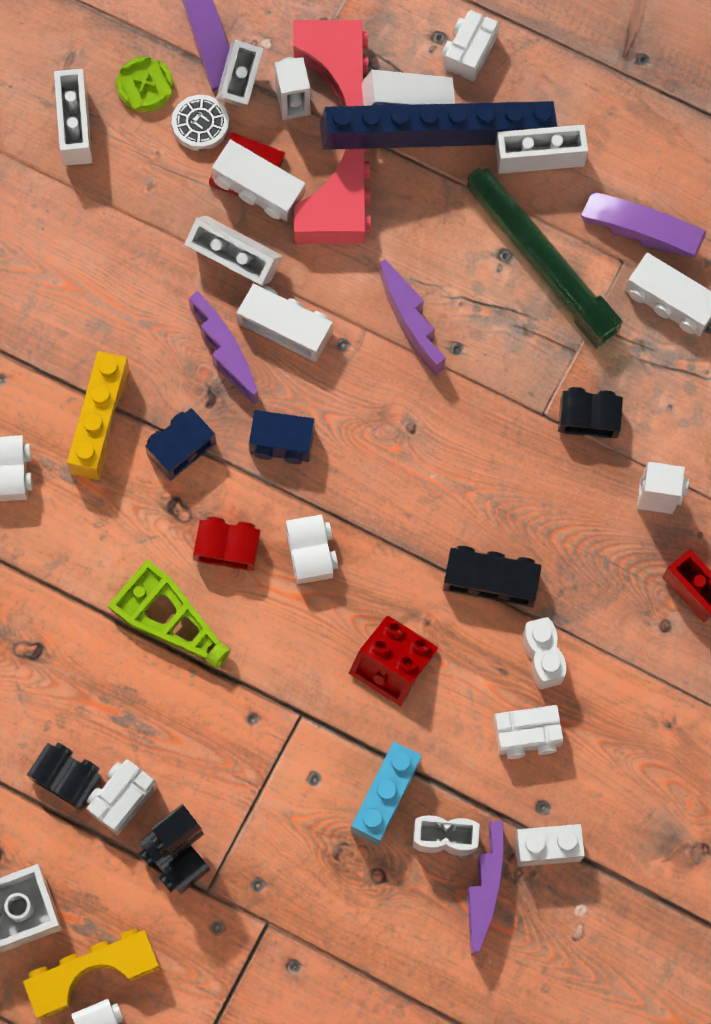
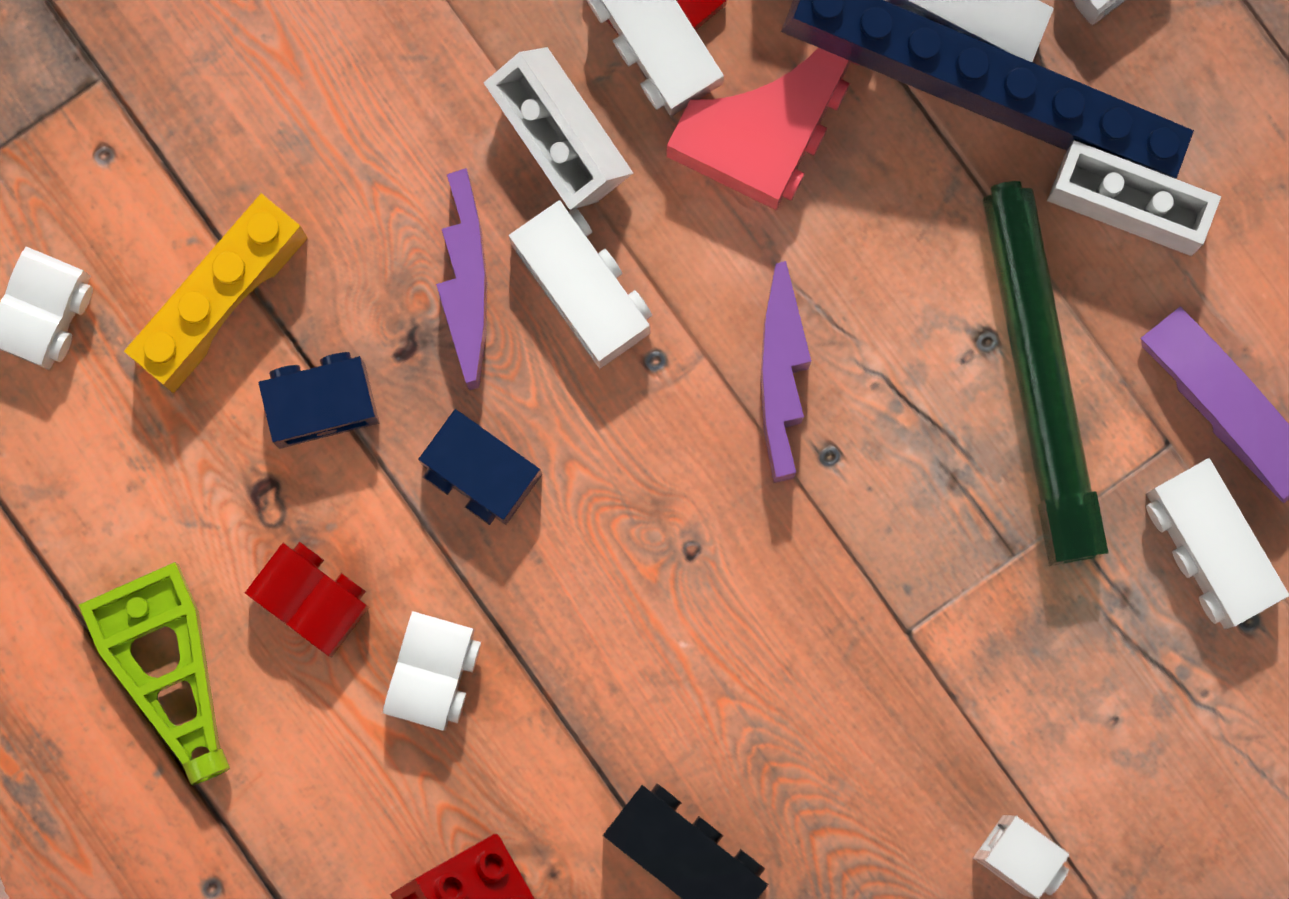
camera: 30 degrees right, 10 degrees up
(590, 413) = (979, 672): black brick -> none

